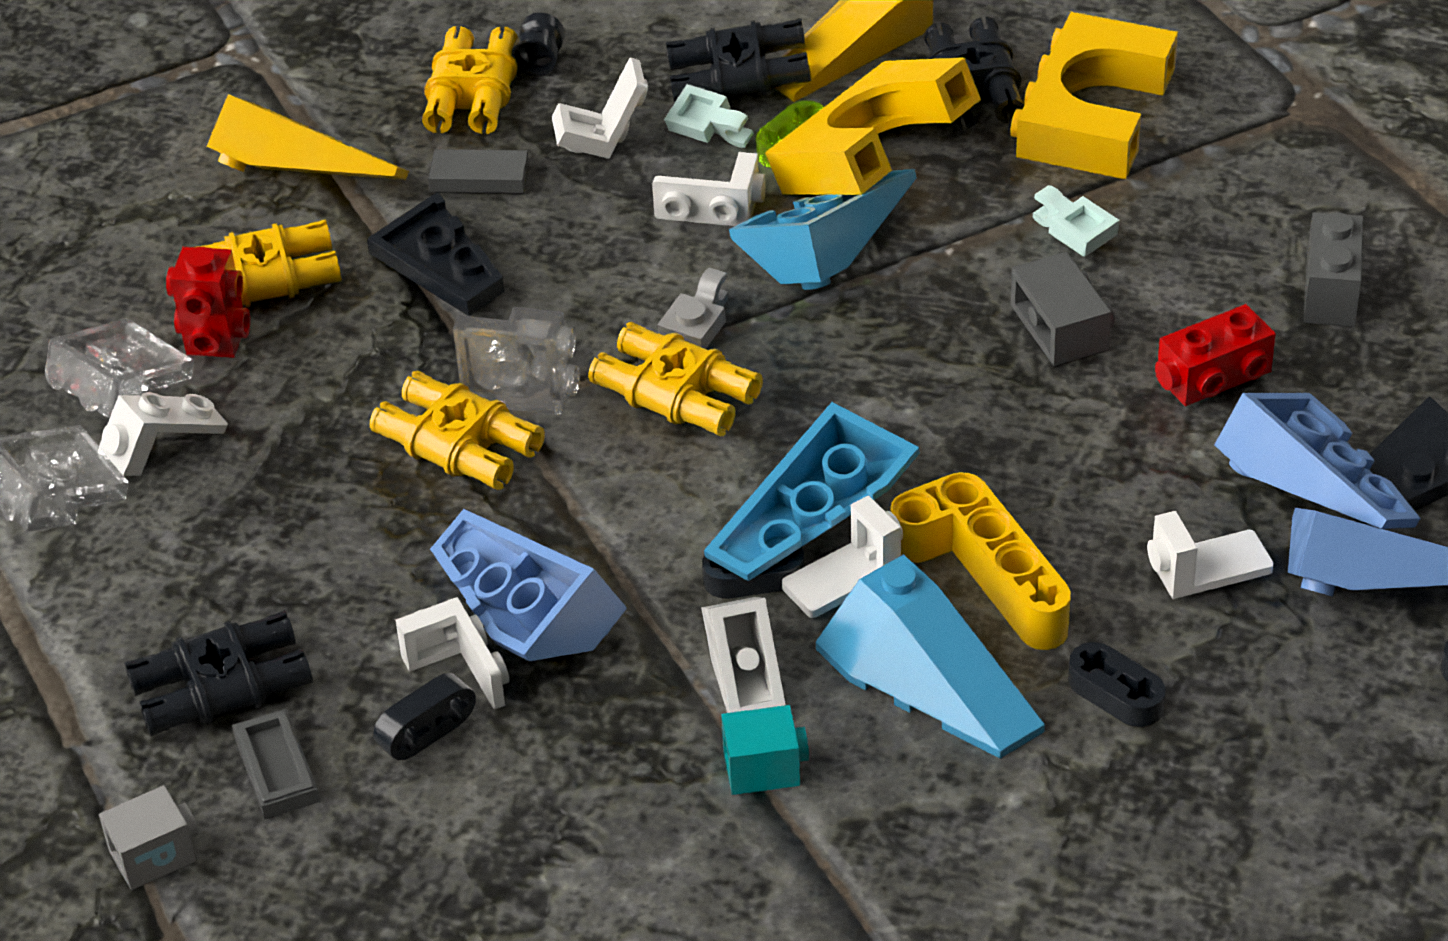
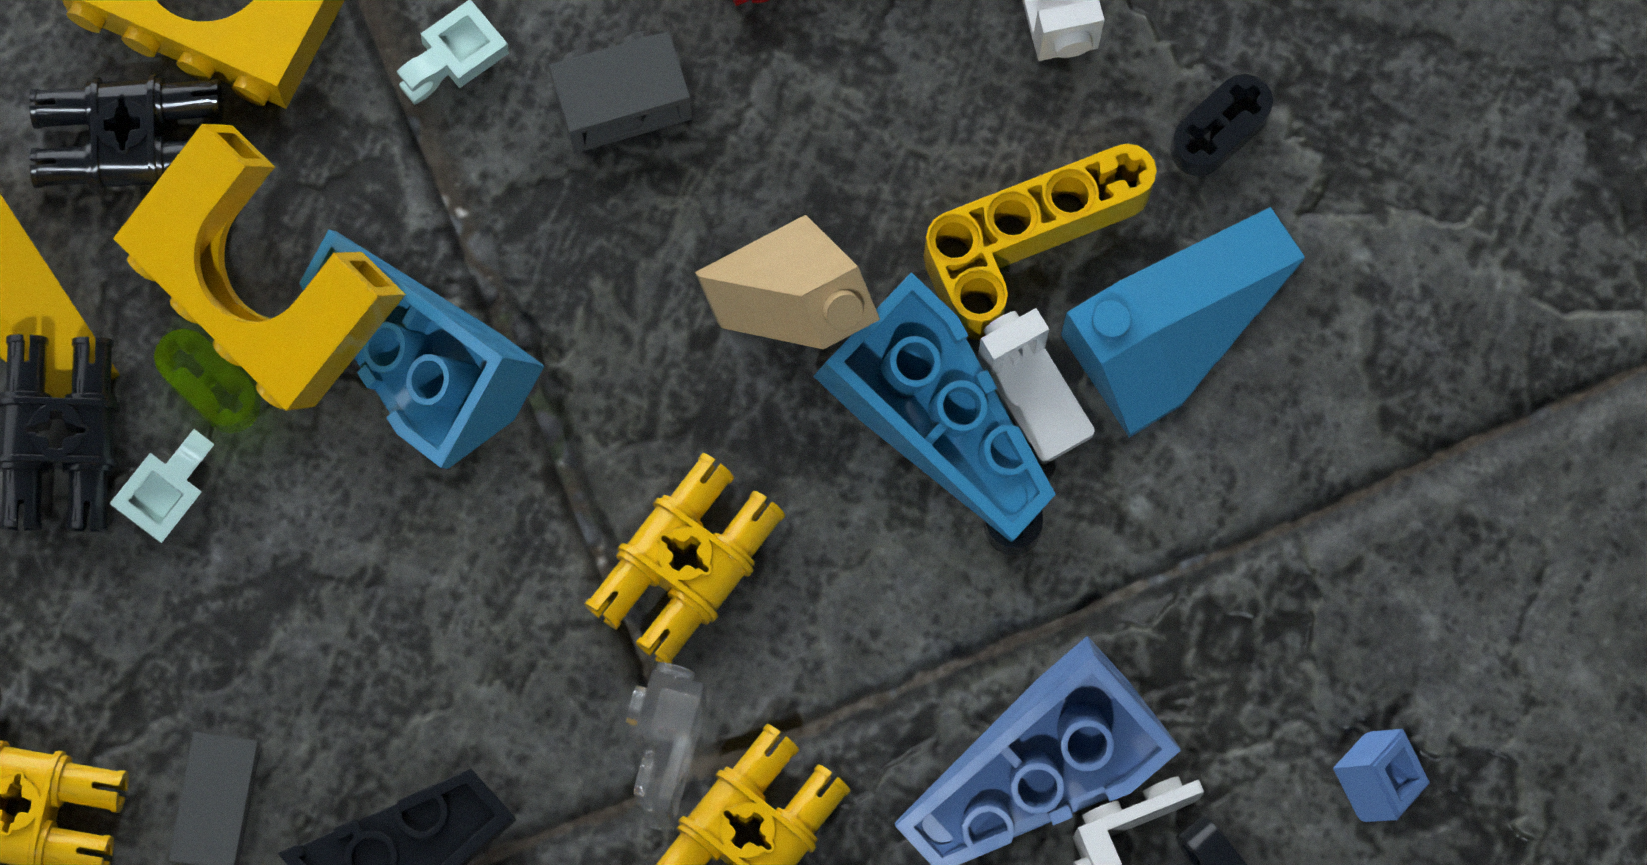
camera: 90 degrees left, 30 degrees up
(516, 822) = (1381, 775): none -> medium blue slope
(596, 132) = (162, 619): white bracket -> none
(698, 316) = (562, 533): light grey plate -> none
(711, 200) = (332, 445): white bracket -> none
(743, 654) = (1161, 510): white slope -> none
(763, 749) = (1306, 500): teal brick -> none
(905, 399) = (790, 288): none -> tan slope

